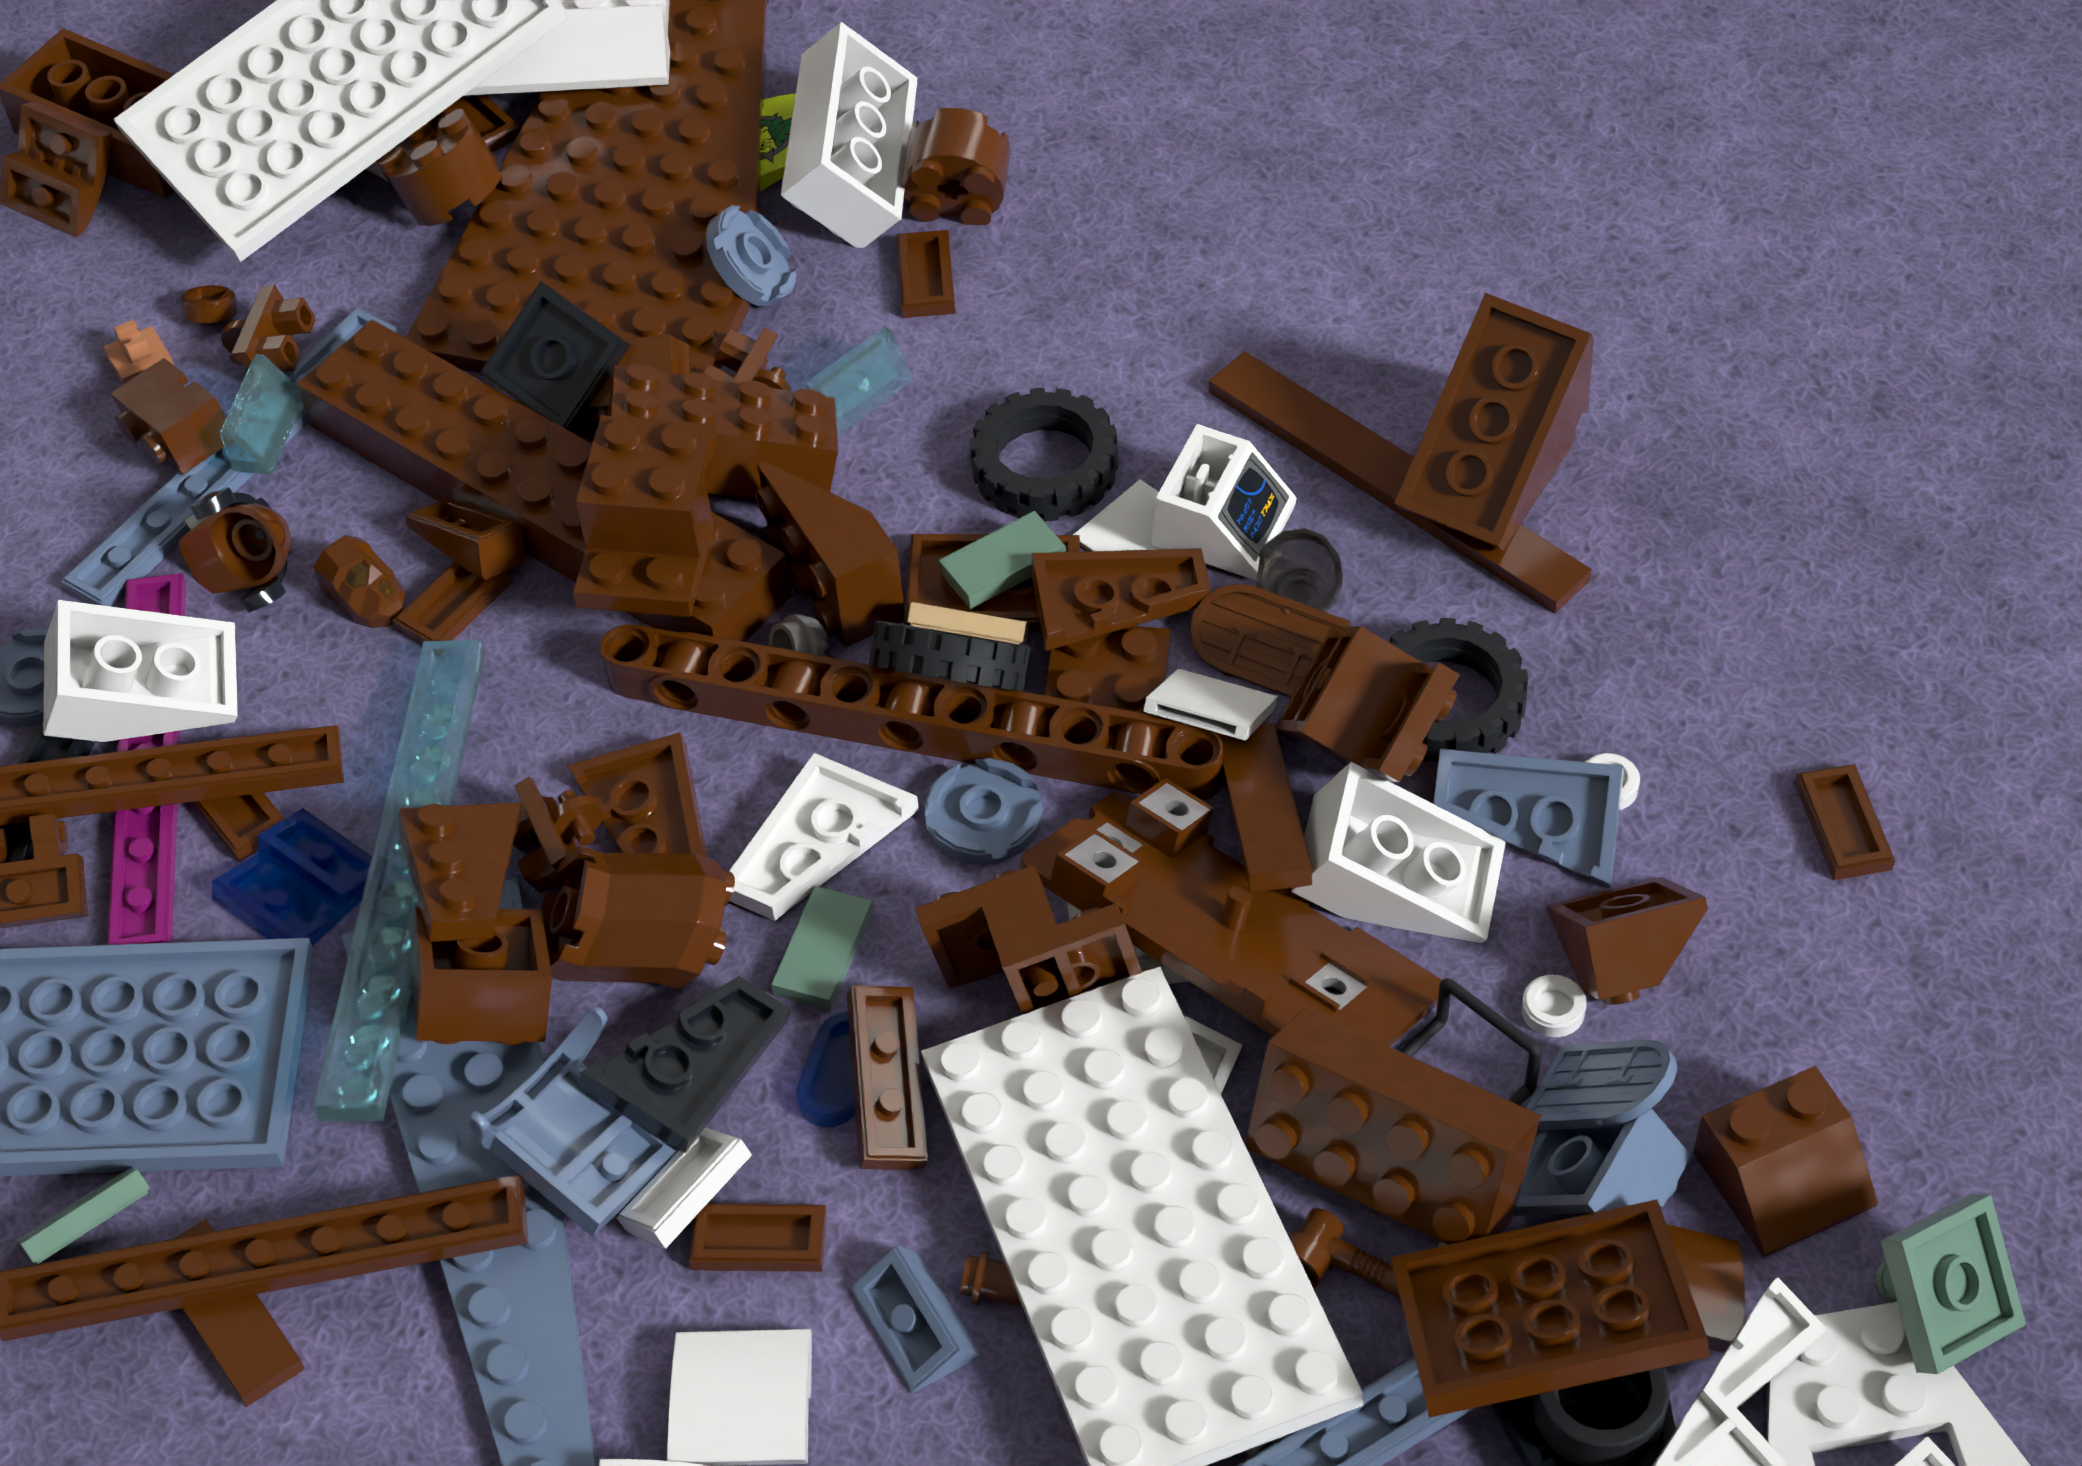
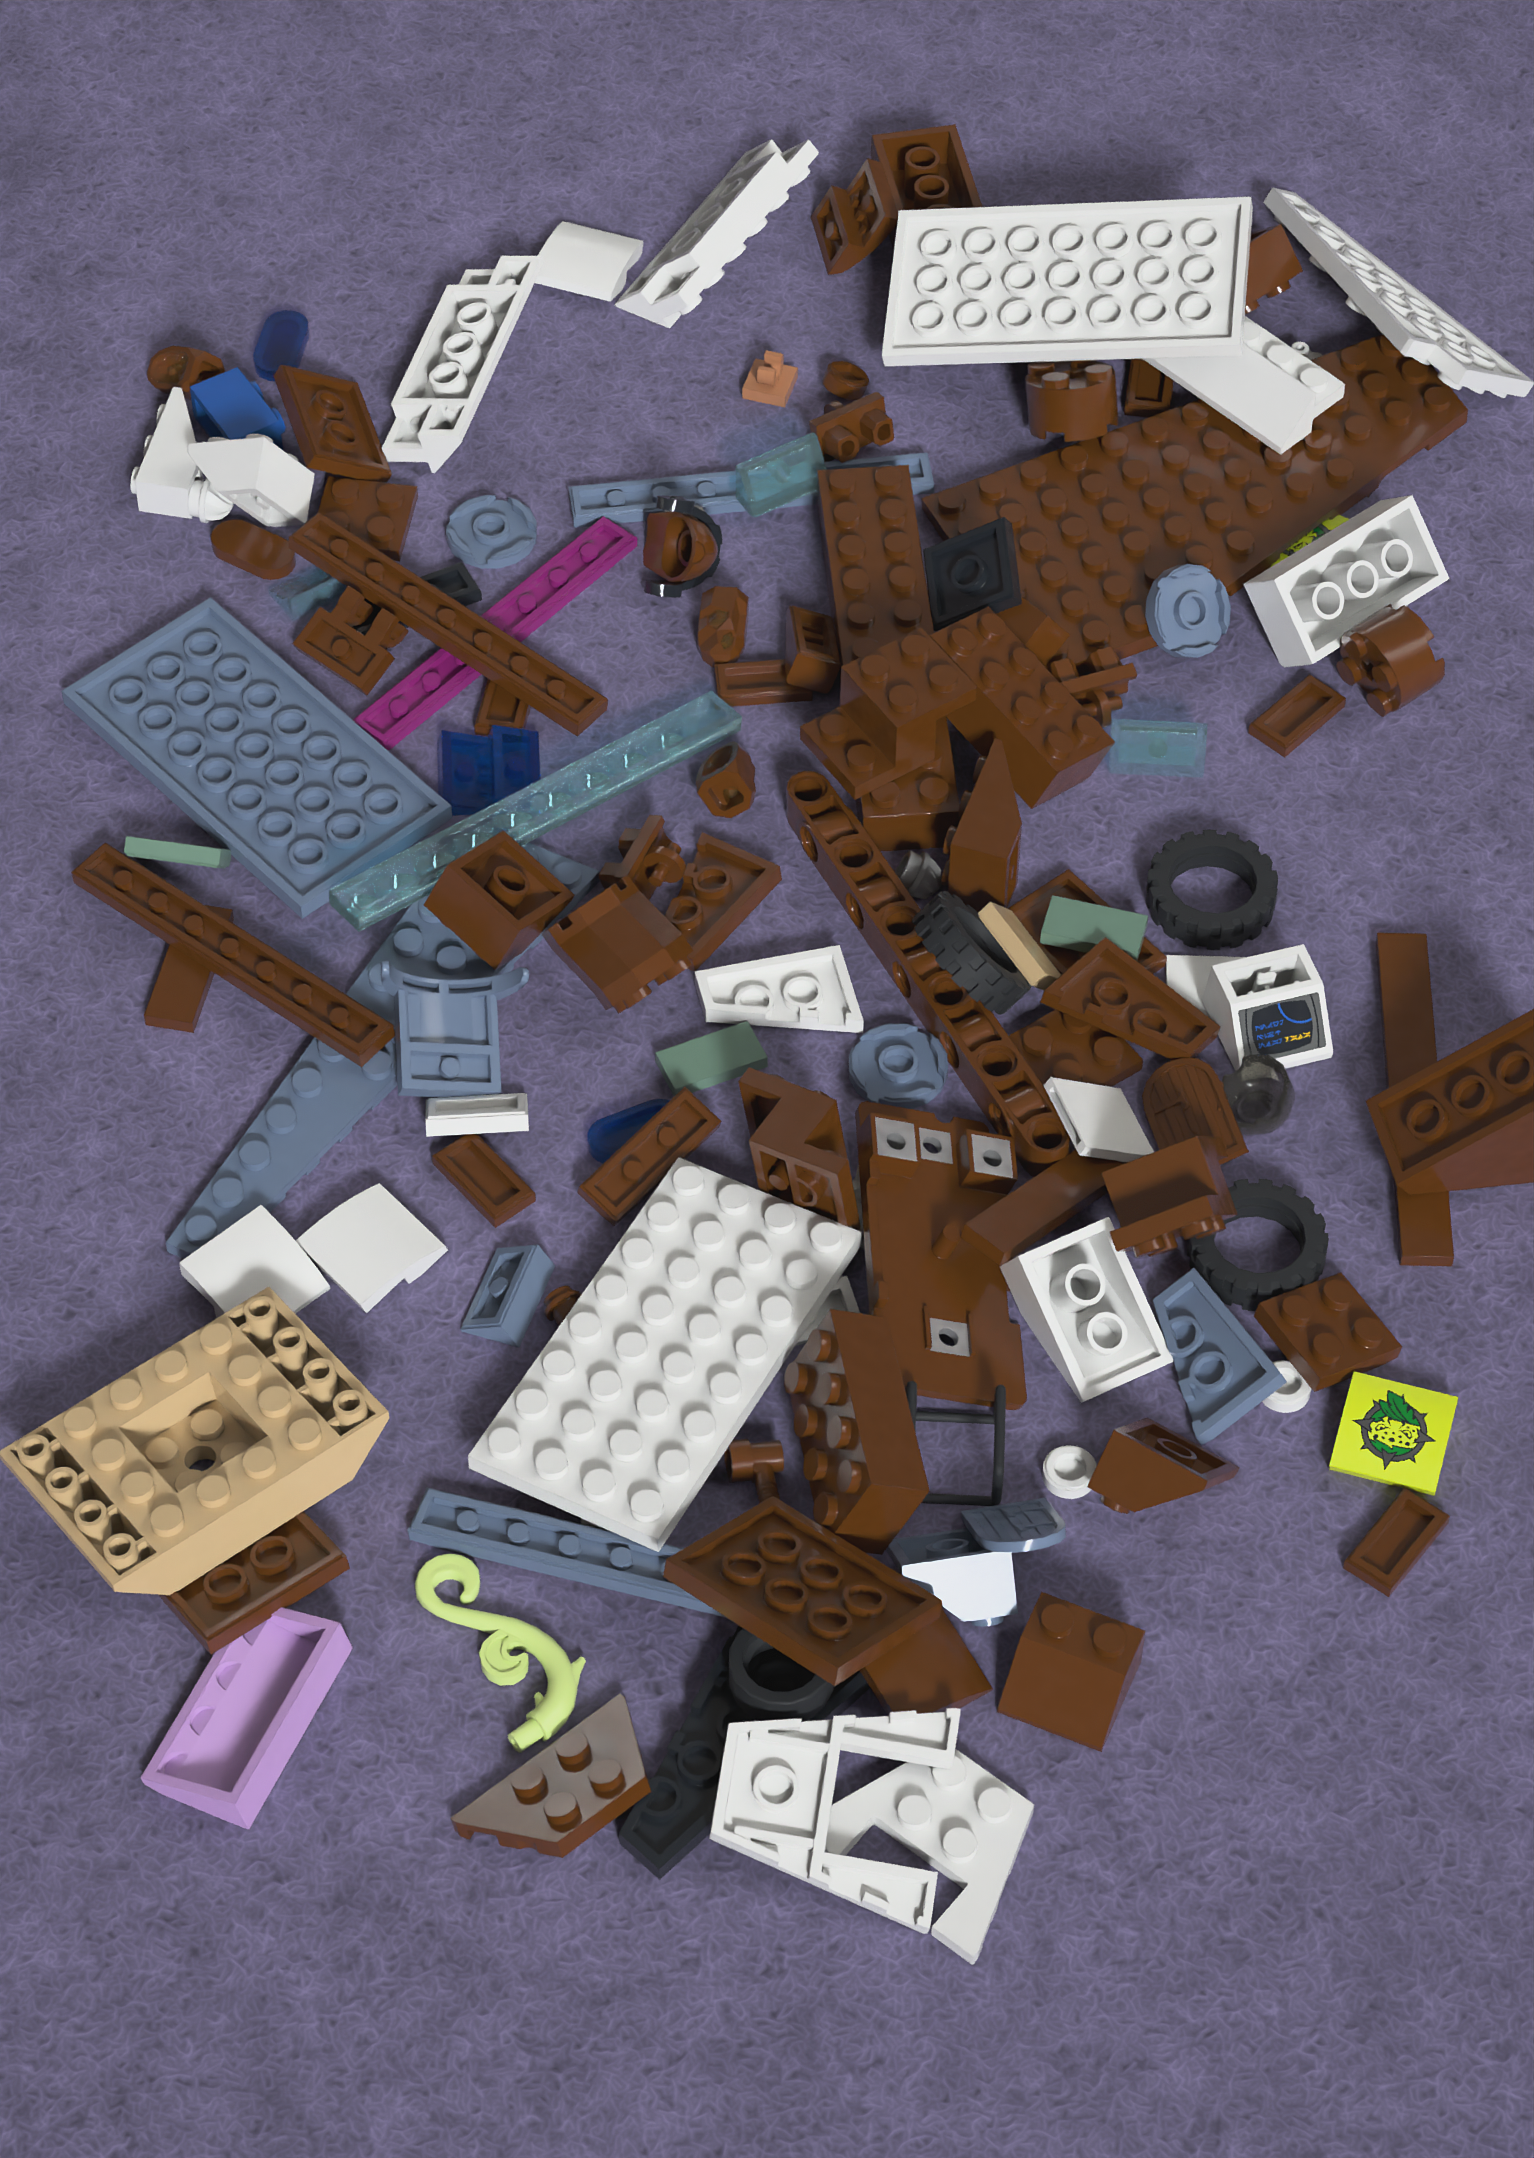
camera: 45 degrees right, 0 degrees up
(135, 673) = (534, 574): white slope -> none
(169, 418) = (732, 431): reddish brown brick -> none
(459, 865) = (555, 827): reddish brown wing -> none
(535, 702) = (727, 781): none -> reddish brown rock
(692, 1065) = (557, 1054): black wing -> none
(1586, 709) = (1327, 1331): none -> reddish brown plate
(1733, 740) = (1393, 1433): none -> neon yellow slope
(1951, 1283) = (1056, 1811): sand green tile -> none

